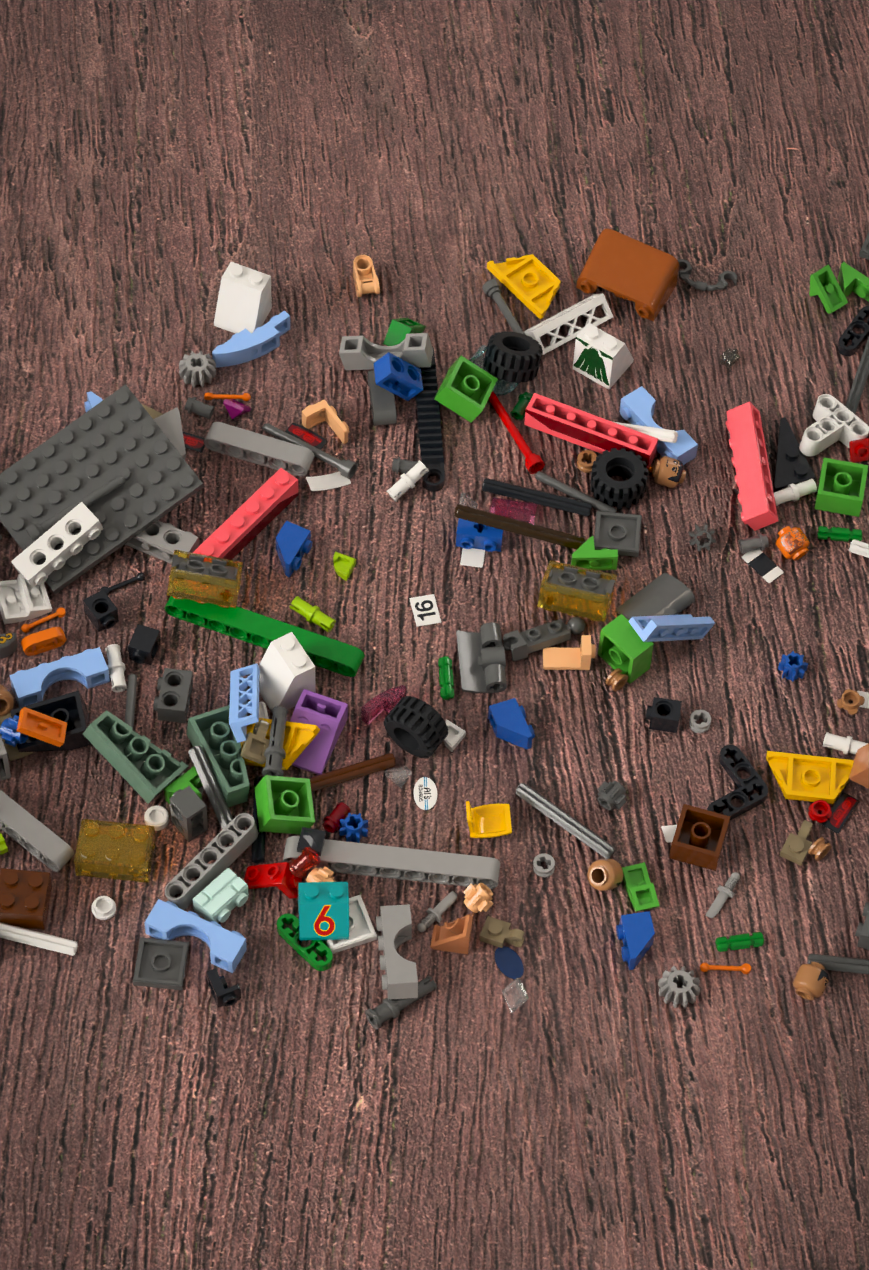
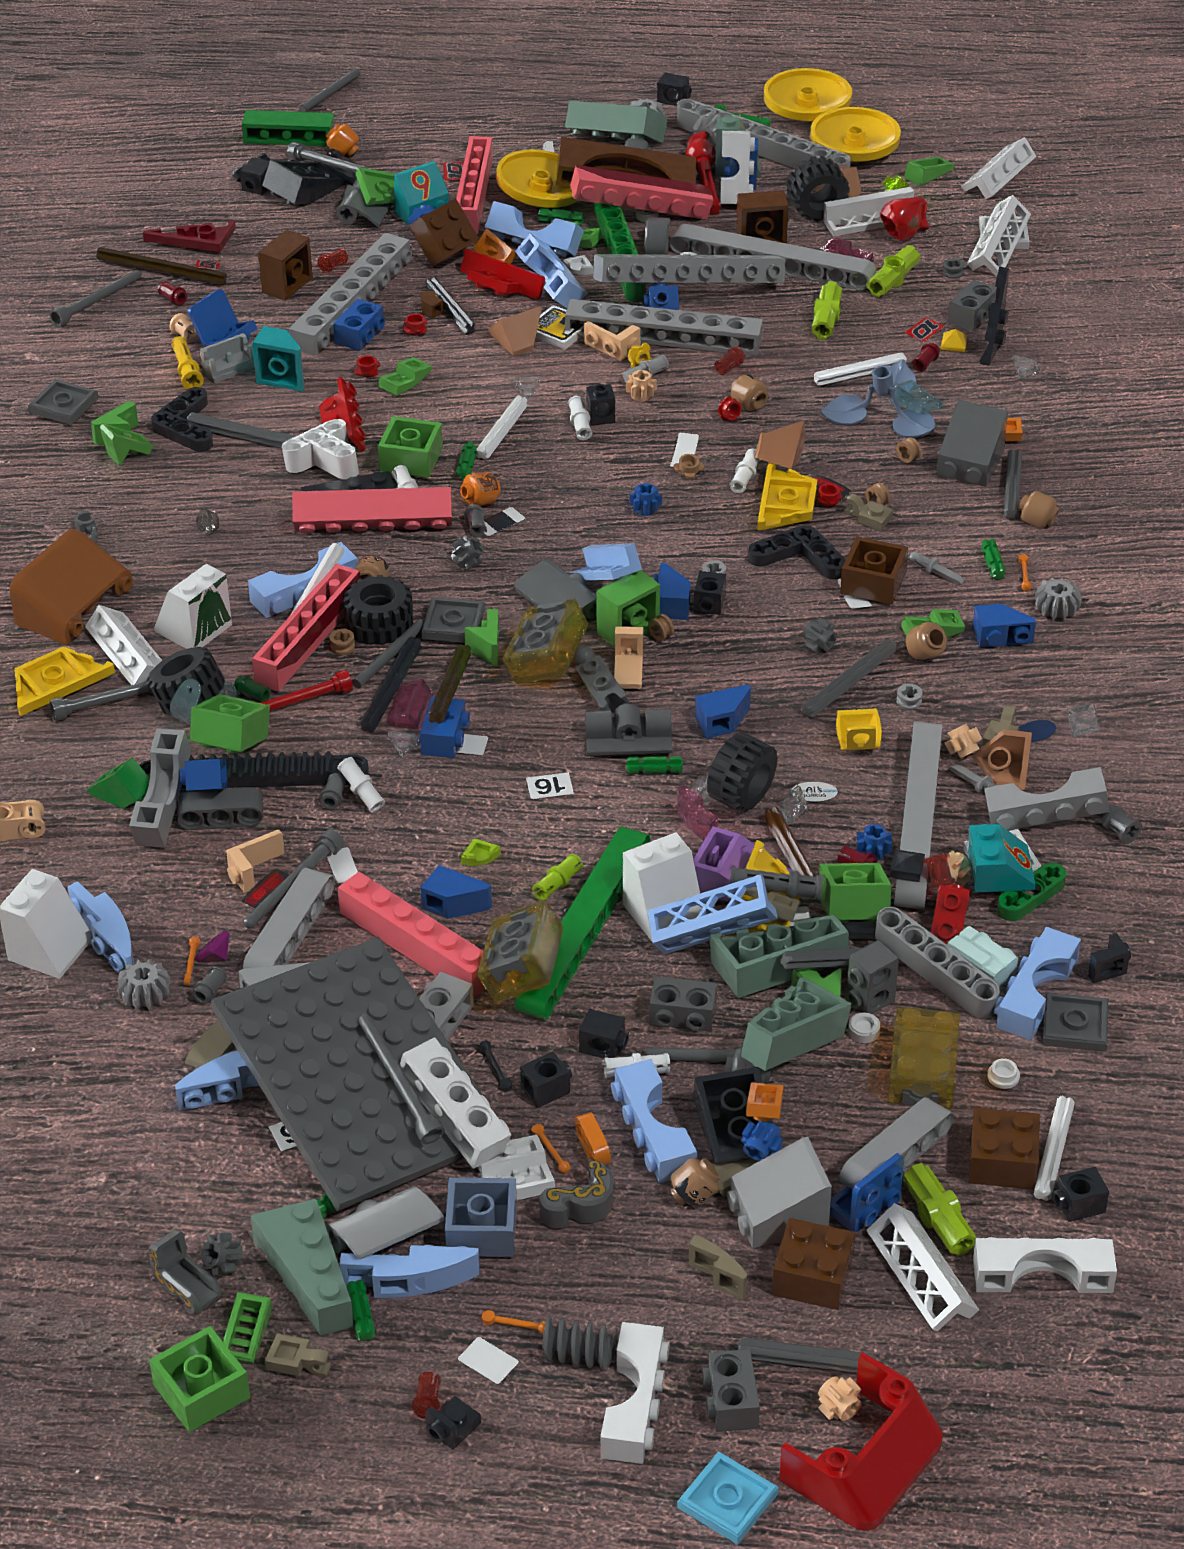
camera: 85 degrees left, 15 degrees down
(662, 684) = (673, 593): none -> blue slope

